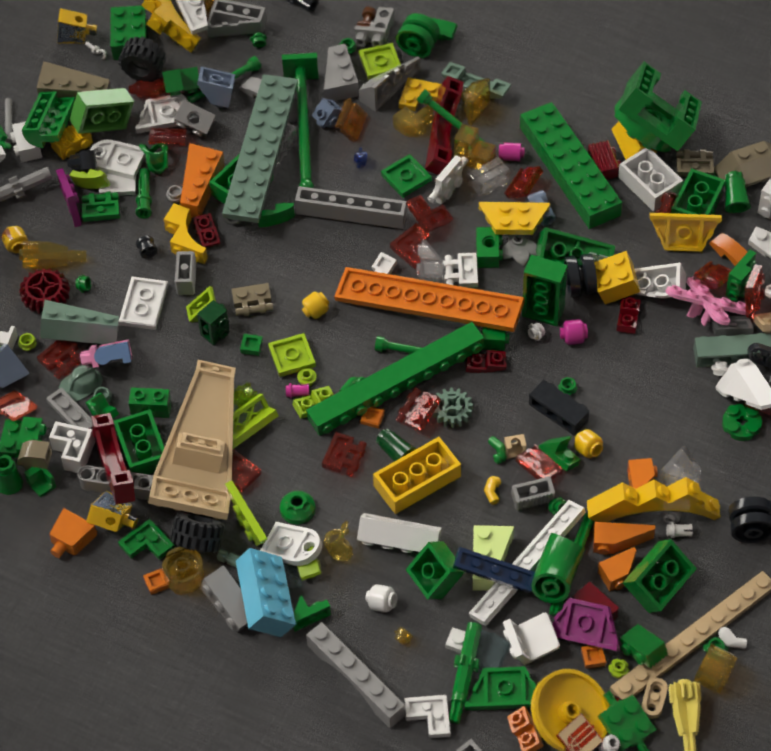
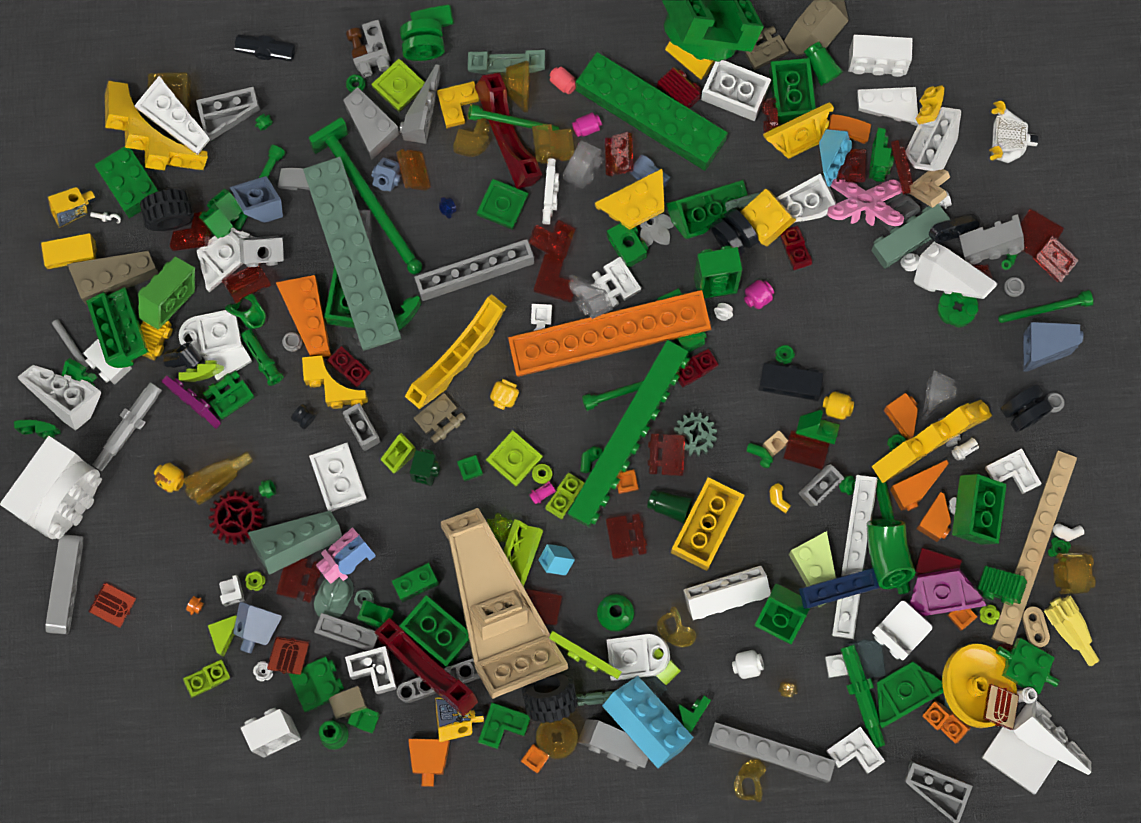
camera: 30 degrees left, 20 degrees up
(51, 53) = (68, 250): none -> yellow piece
(275, 442) = (556, 559): none -> medium azure panel
(295, 260) = (459, 355): none -> yellow arch
(333, 680) = (752, 769): none -> clear yellow piece
(512, 113) = (563, 80): none -> coral brick
(702, 256) = (833, 149): none -> medium azure slope
(716, 564) = (1015, 466): none -> white plate

